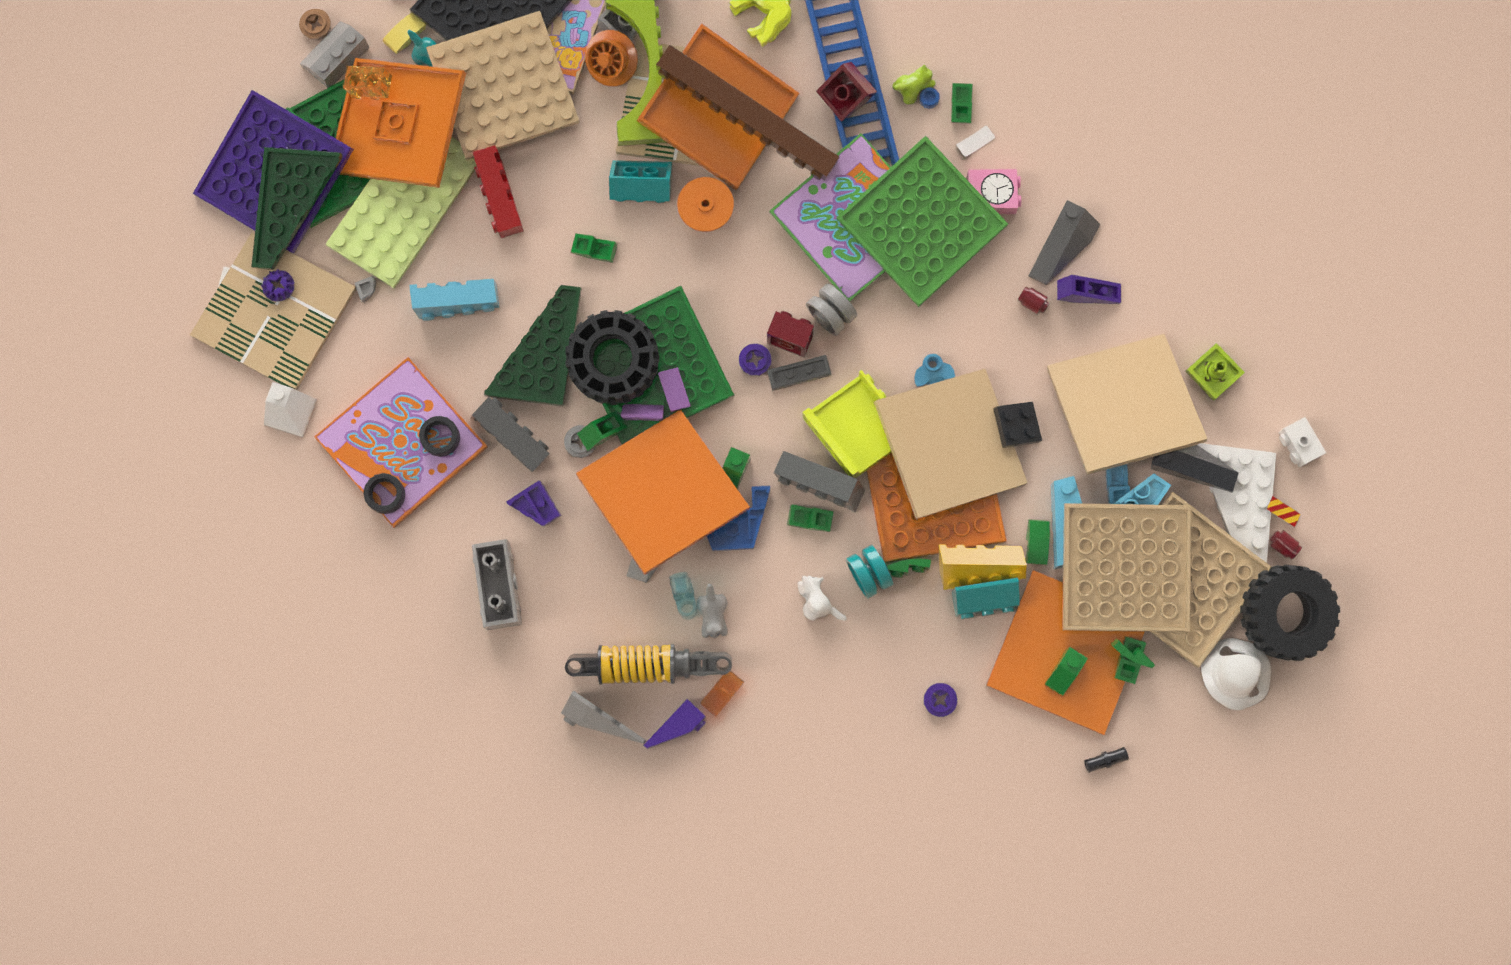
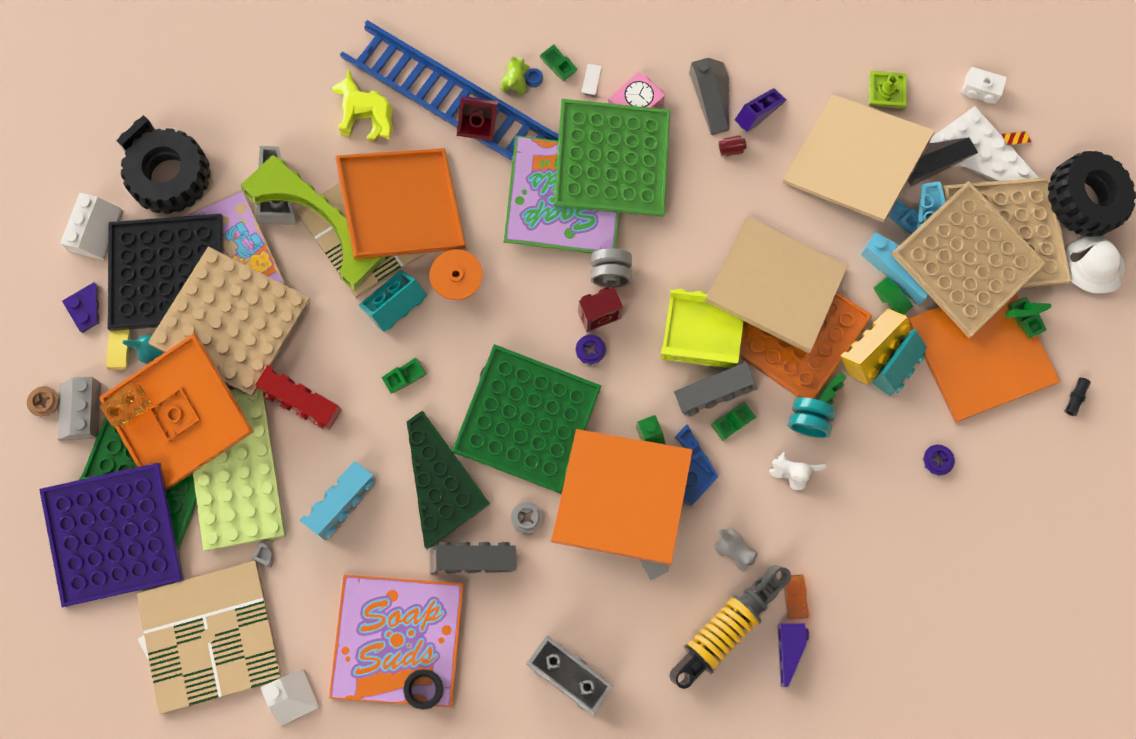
camera: 50 degrees left, 5 degrees down
(279, 294) = (201, 619): dark purple gear -> none
(287, 193) = (140, 540): dark green wing -> none
(437, 420) = (423, 593): black tyre -> none
(536, 504) = (539, 591): dark purple wing -> none
(585, 714) = (724, 704): light grey wedge -> none
(601, 328) = (503, 406): black tyre -> none
(601, 430) = (536, 494): green slope -> none
(611, 58) = (290, 235): orange piece -> none
(642, 412) = (552, 455): medium lavender slope -> none
(674, 389) = (558, 419): medium lavender slope -> none
(683, 593) = (702, 553): clear light blue piece -> none
(746, 112) = (427, 186): reddish brown brick -> none
(799, 372) = (628, 331): dark grey tile -> none
(929, 375) = (718, 252): dark azure plate -> none
(1017, 424) = (803, 233): black plate -> none
(1066, 671) = (998, 361): green slope -> none
(1285, 544) = (1039, 157): dark red brick -> none

